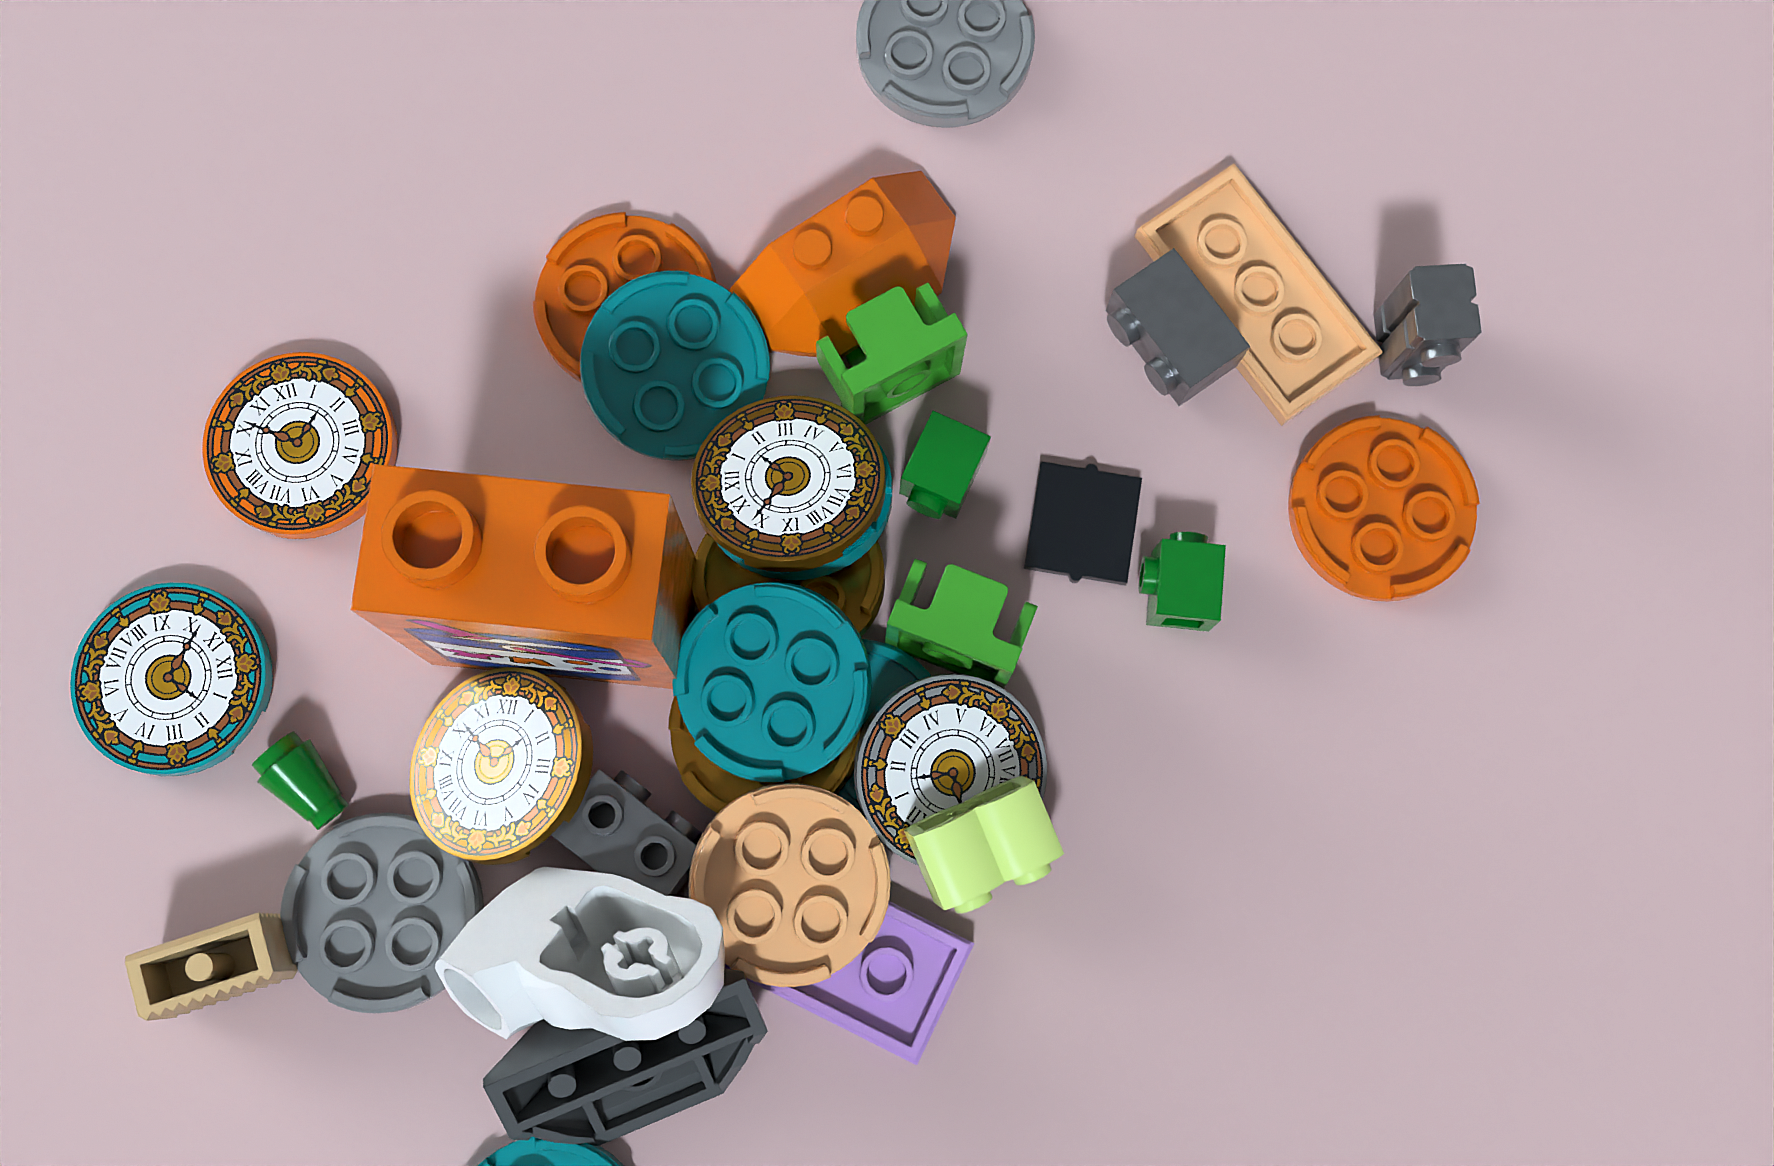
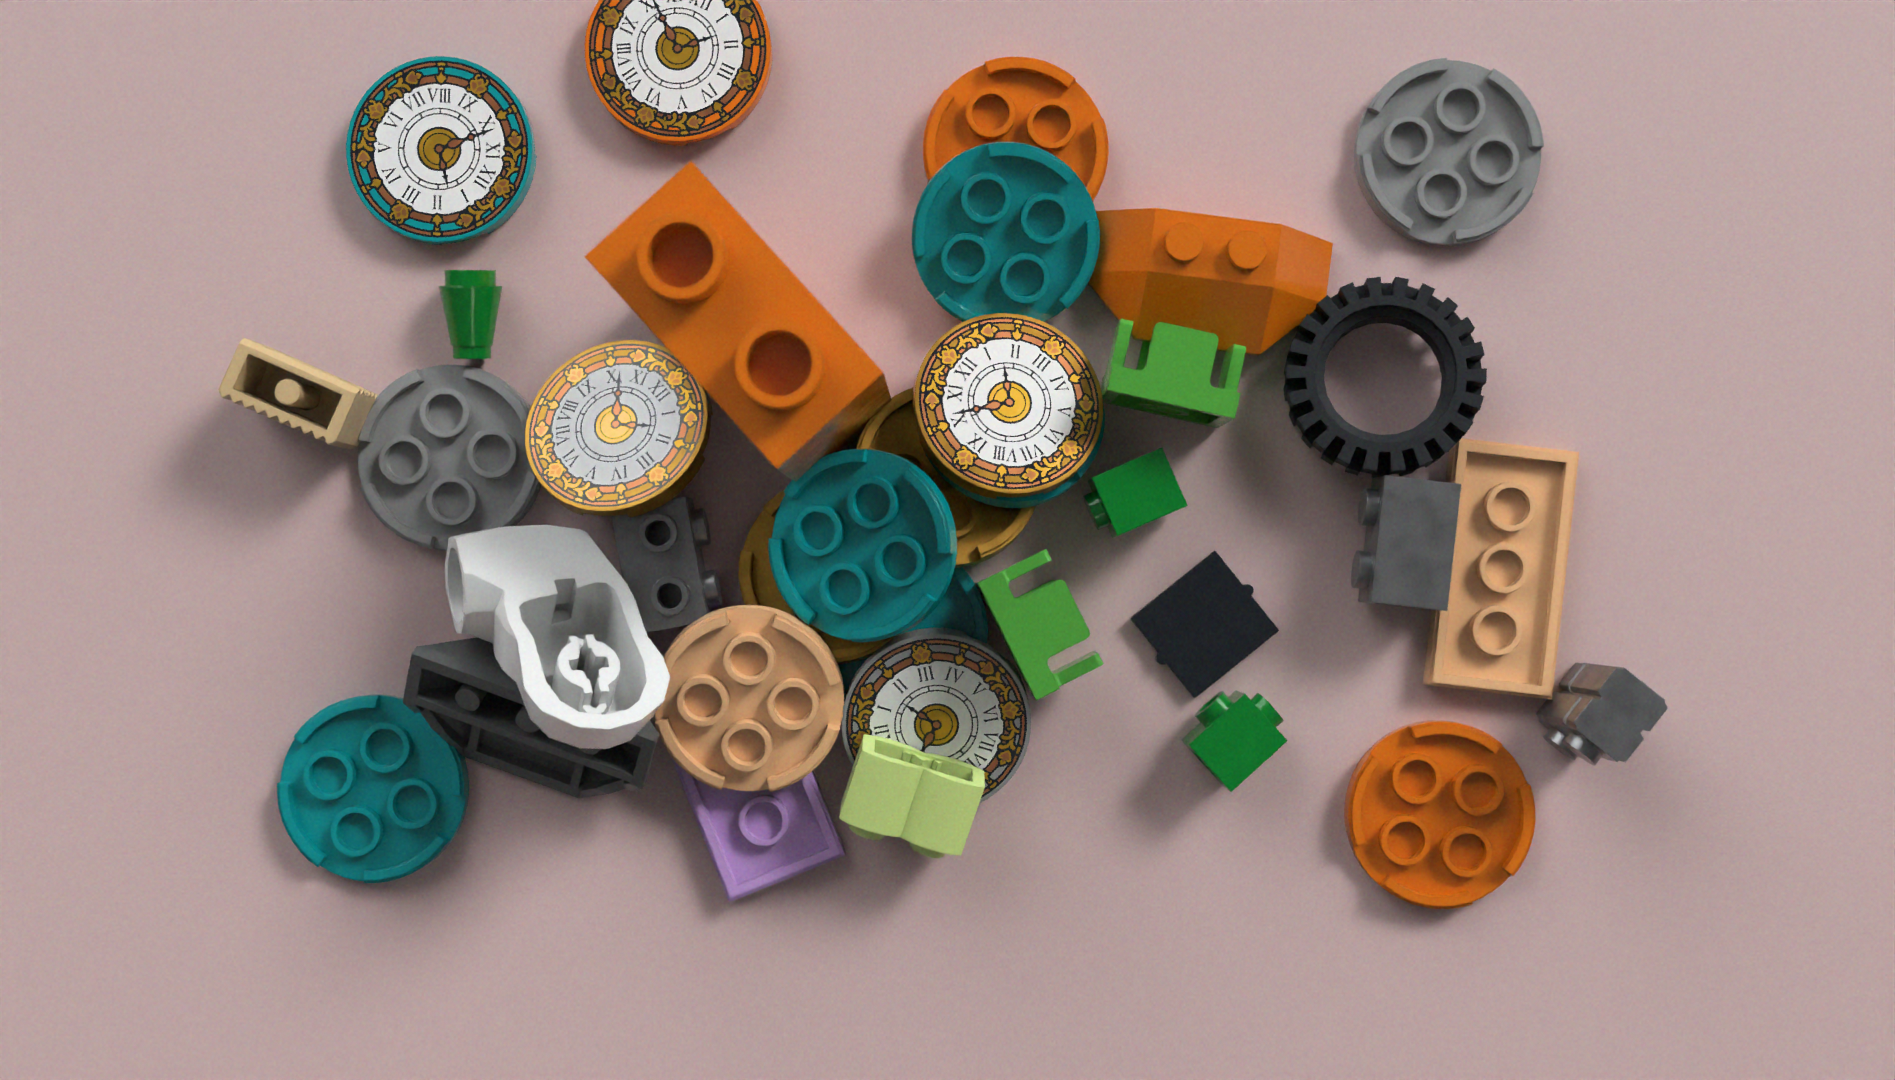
camera: 45 degrees right, 10 degrees up
(1032, 162) = (1401, 306): none -> black tyre

